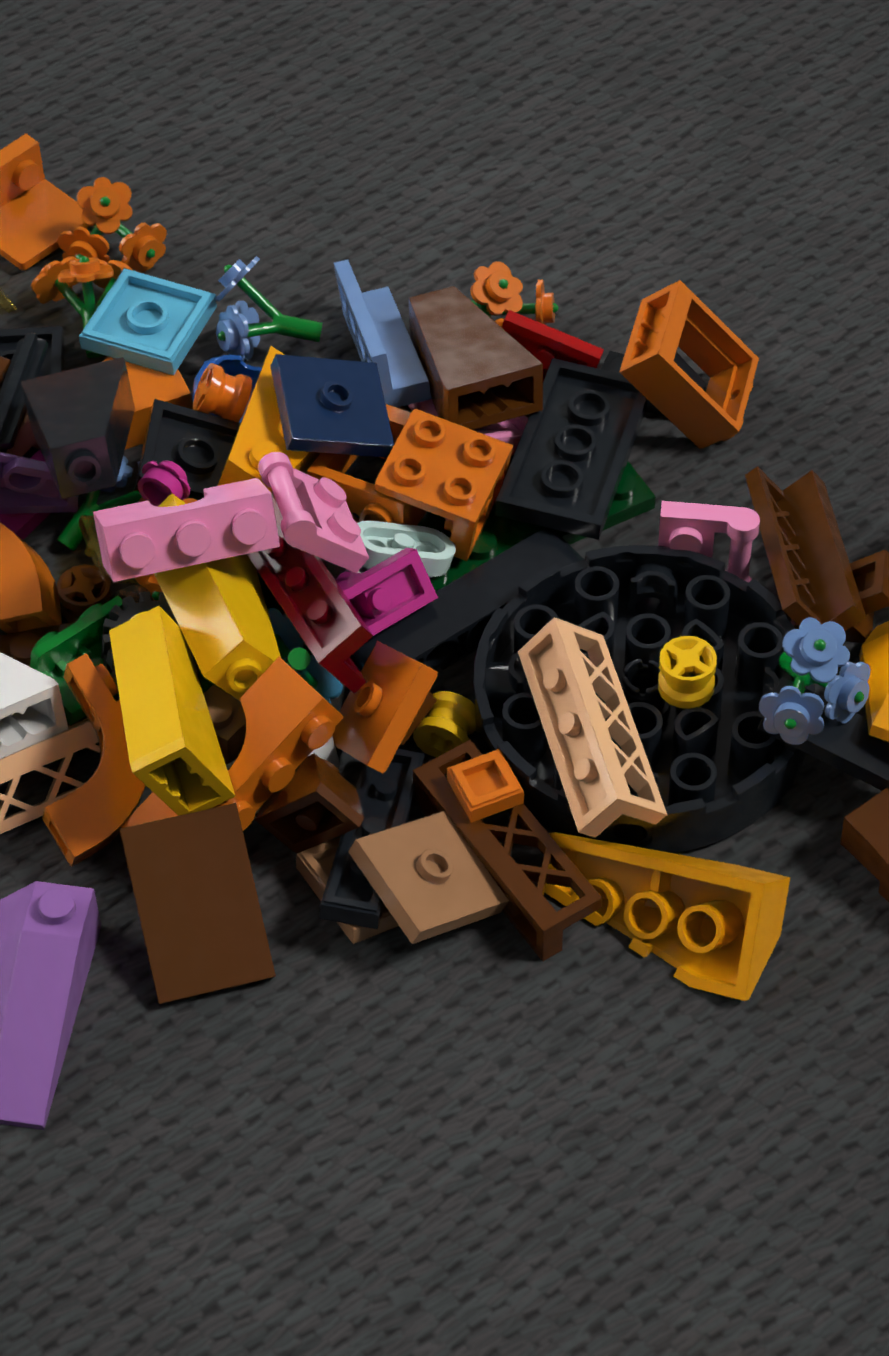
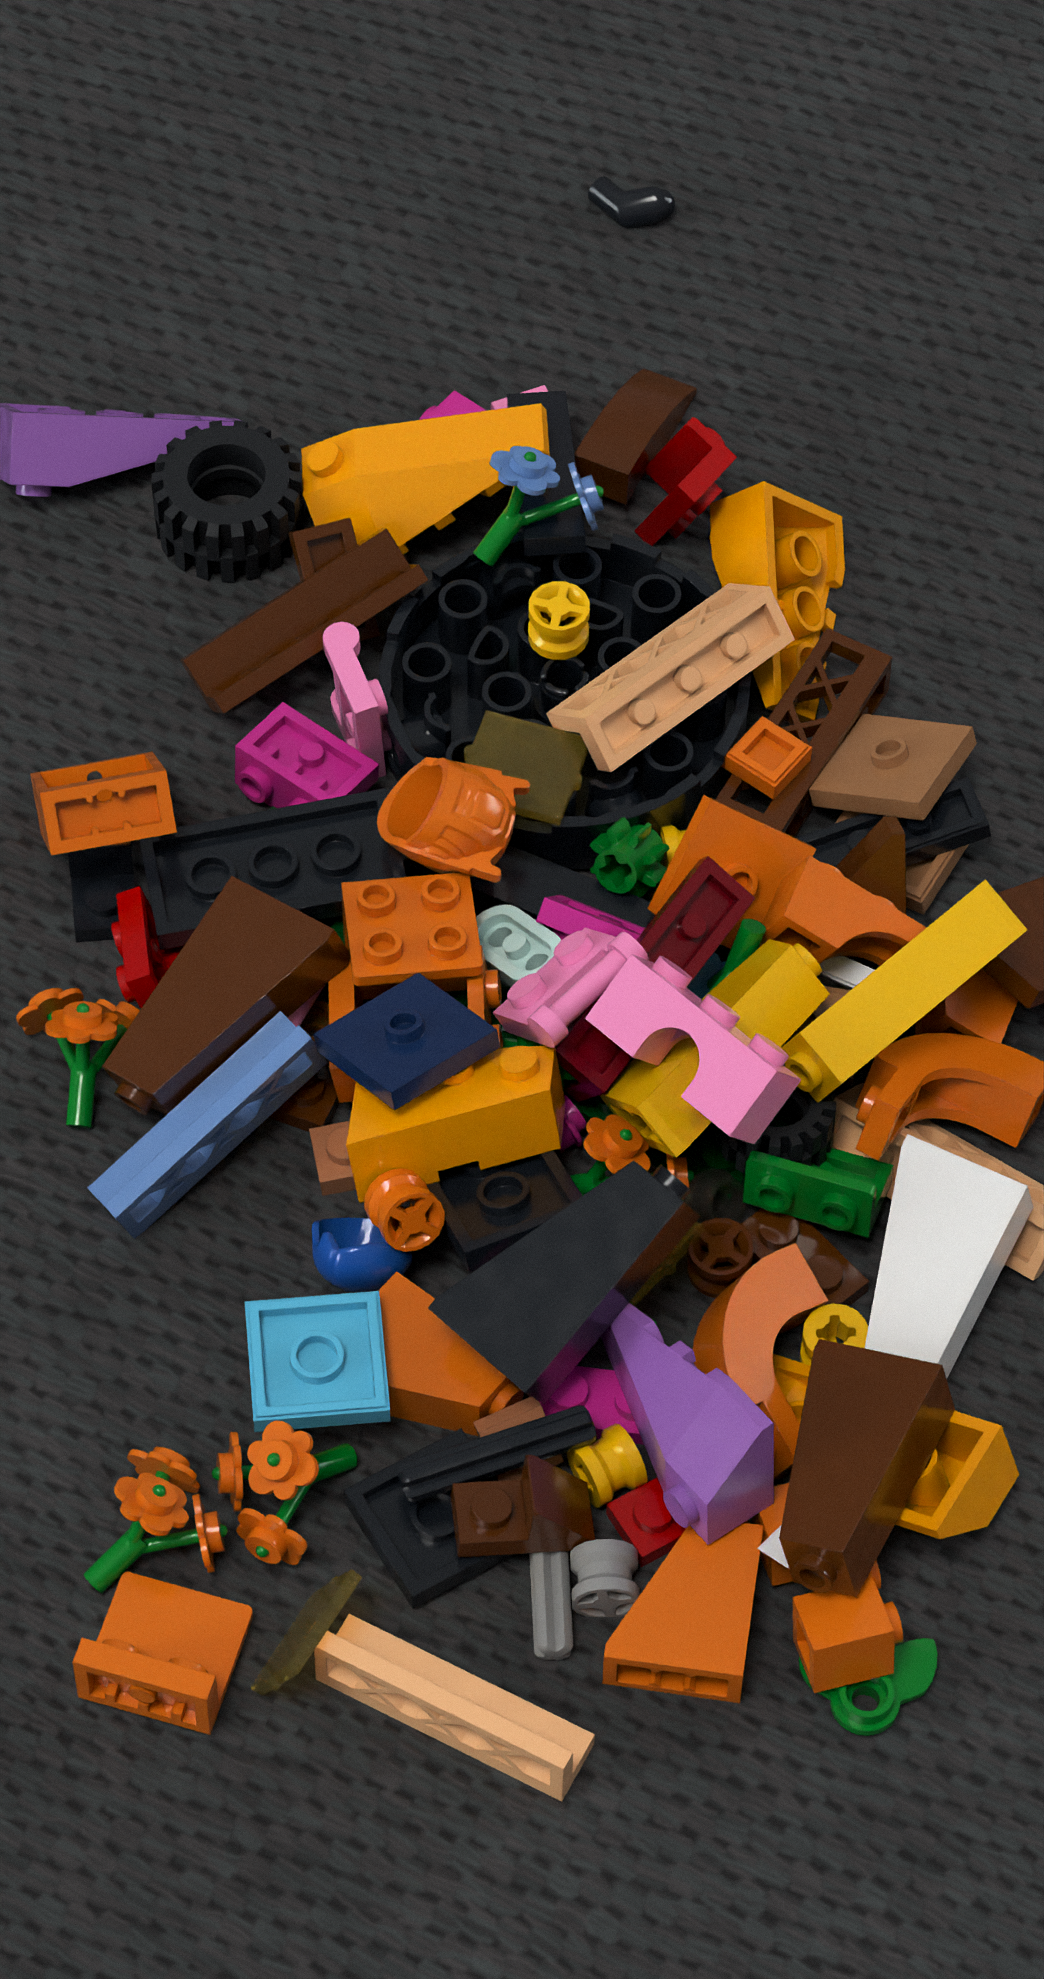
camera: 120 degrees left, 5 degrees up
(161, 481) = (590, 1165): dark pink plate -> none
(240, 326) = (225, 1275): plant -> none
(449, 655) = (629, 858): none -> green gear
(519, 524) = (452, 816): none -> orange helmet
(565, 592) = (532, 752): none -> clear yellow piece
(638, 512) = (298, 762): none -> dark pink bracket
(831, 869) = (688, 474): none -> red bracket

